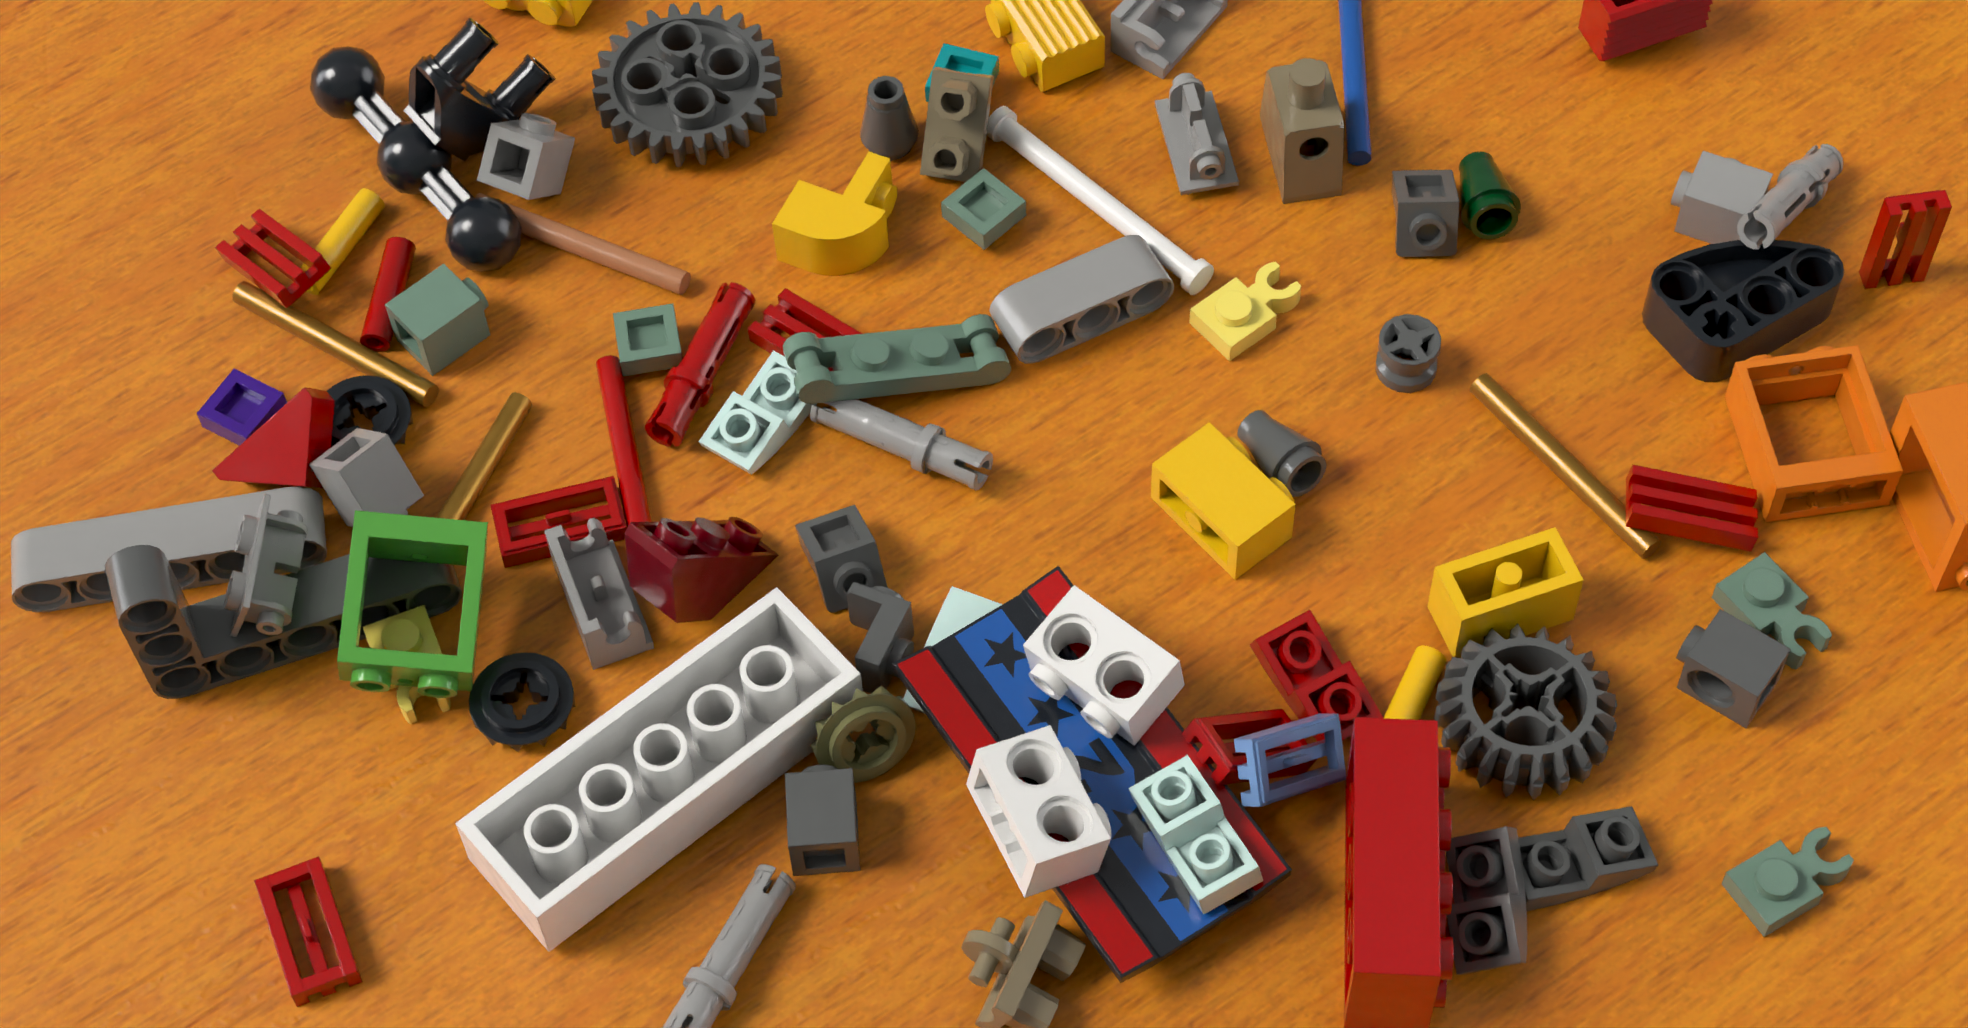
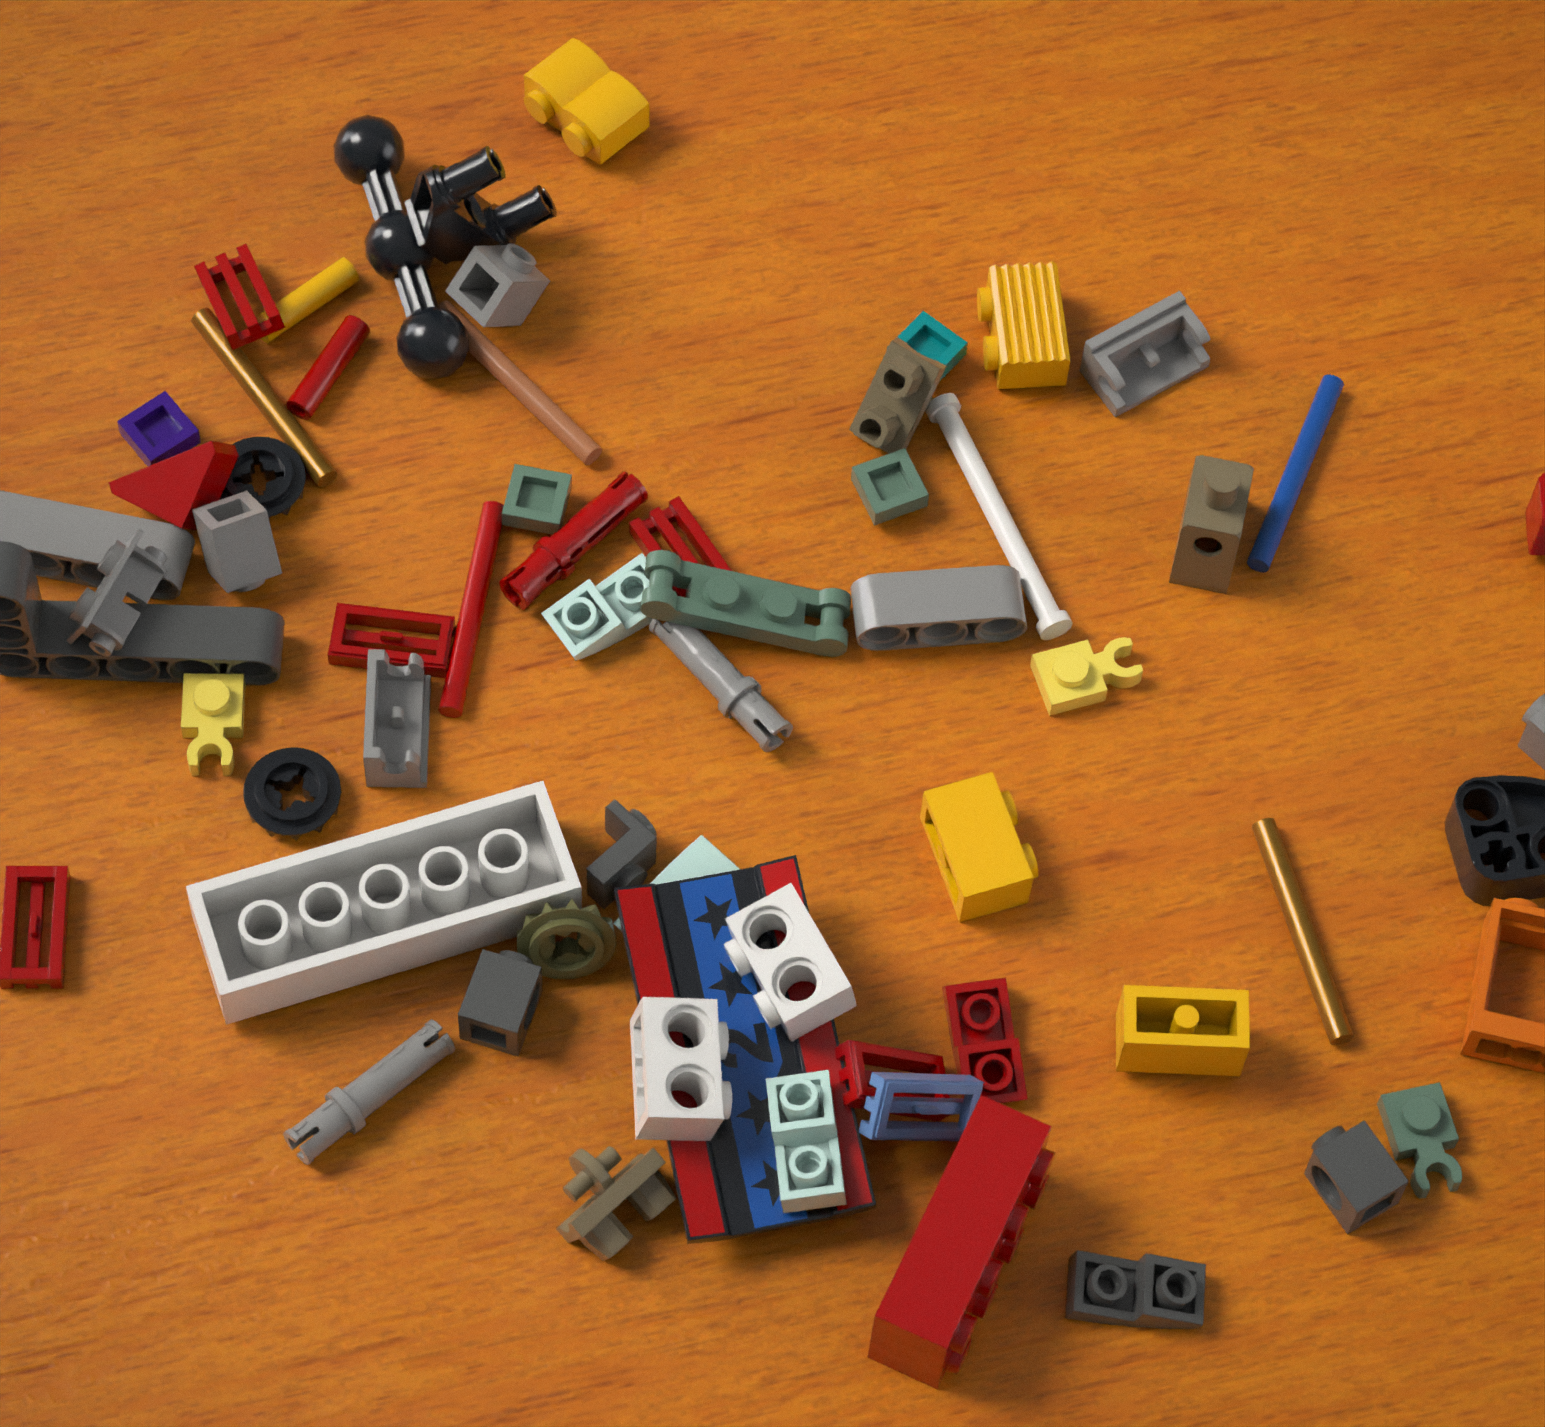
camera: 15 degrees right, 5 degrees up
(419, 541) = (255, 619): bright green window -> none
(439, 318) = (362, 410): sand green brick -> none
(486, 457) = (343, 564): pearl gold bar -> none
(687, 84) = (634, 284): dark grey gear -> none
(694, 565) = (488, 729): dark red slope -> none
(837, 231) = (749, 460): yellow brick -> none
(840, 554) = (620, 767): dark grey bracket -> none
(888, 121) = (839, 369): dark grey cone -> none
(1195, 137) = (1115, 489): light grey hinge -> none
(1283, 452) = (1051, 824): dark grey cone -> none
(1414, 339) = (1218, 761): dark grey wheel -> none
(1416, 684) = (1065, 1086): yellow piece -> none
(1425, 212) = (1290, 641): dark grey bracket -> none
(1487, 199) = (1353, 650): dark green cone -> none
(1489, 901) = (1043, 1291): dark grey slope -> none
(1526, 733) = (1195, 1125): dark grey gear -> none
(1691, 499) = (1397, 1009): red tile -> none
(1782, 886) = (1302, 1385): sand green plate -> none

